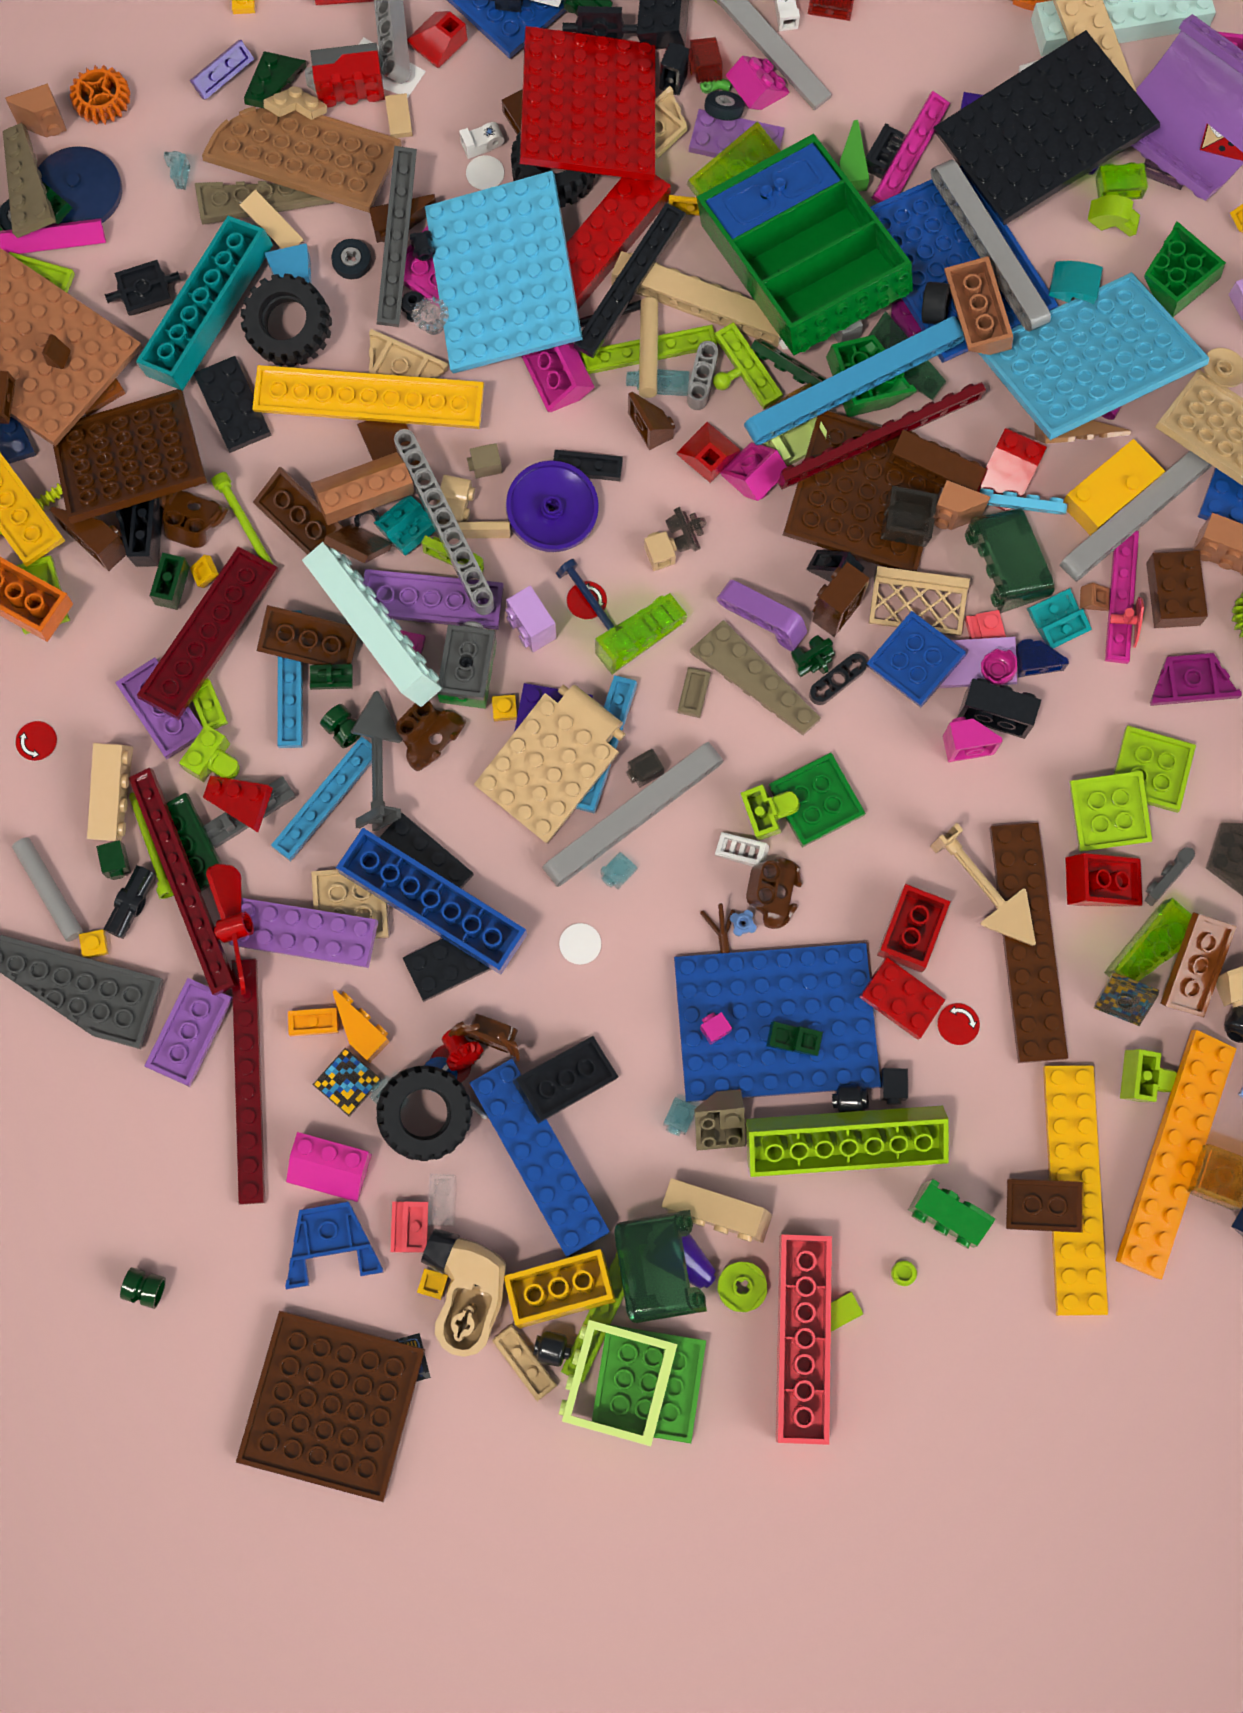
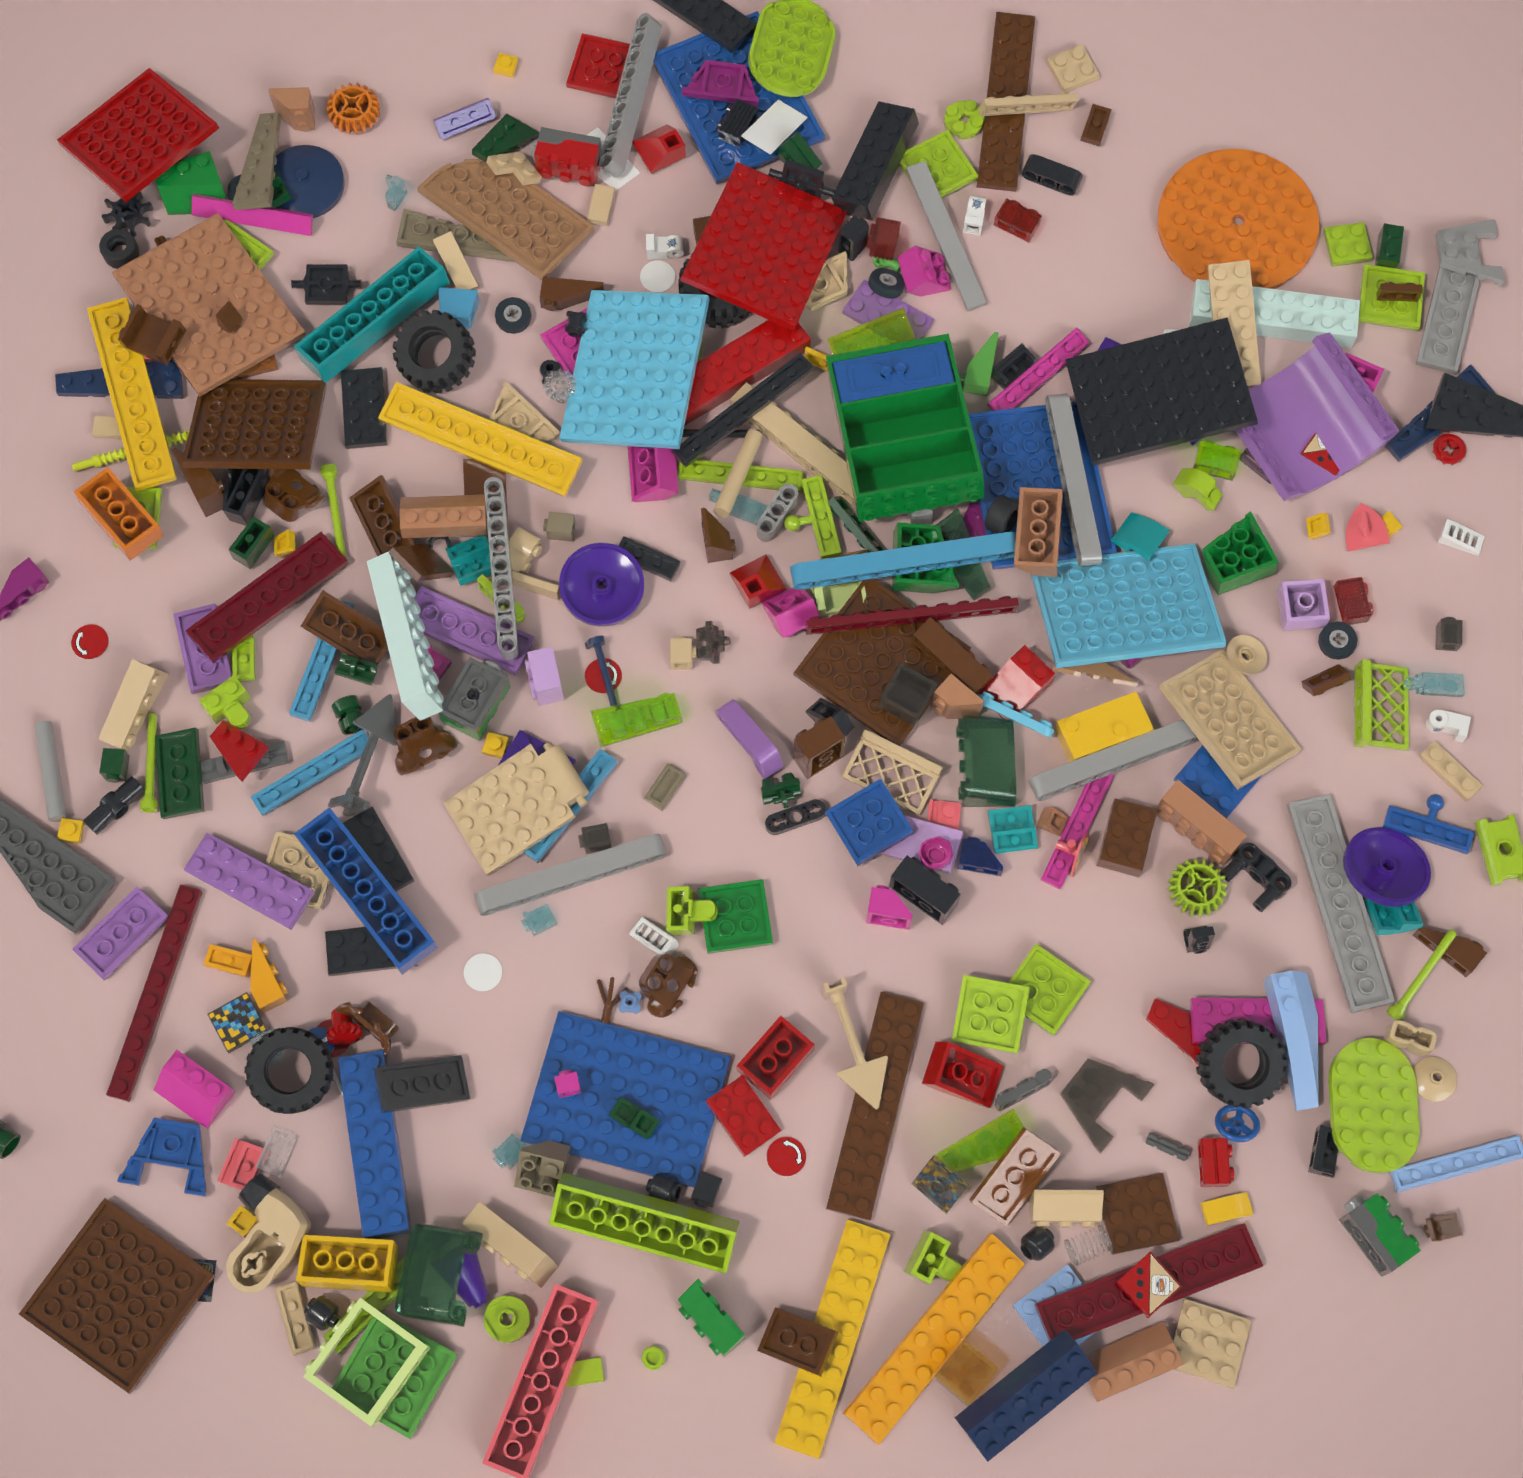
camera: 20 degrees right, 5 degrees down
(182, 881) = (163, 803): dark red plate -> none
(226, 889) = (193, 853): red piece -> none
(396, 236) = (555, 309): dark grey plate -> none
(741, 665) = (715, 777): dark tan wing -> none
(1193, 680) = (1111, 923): magenta wing -> none

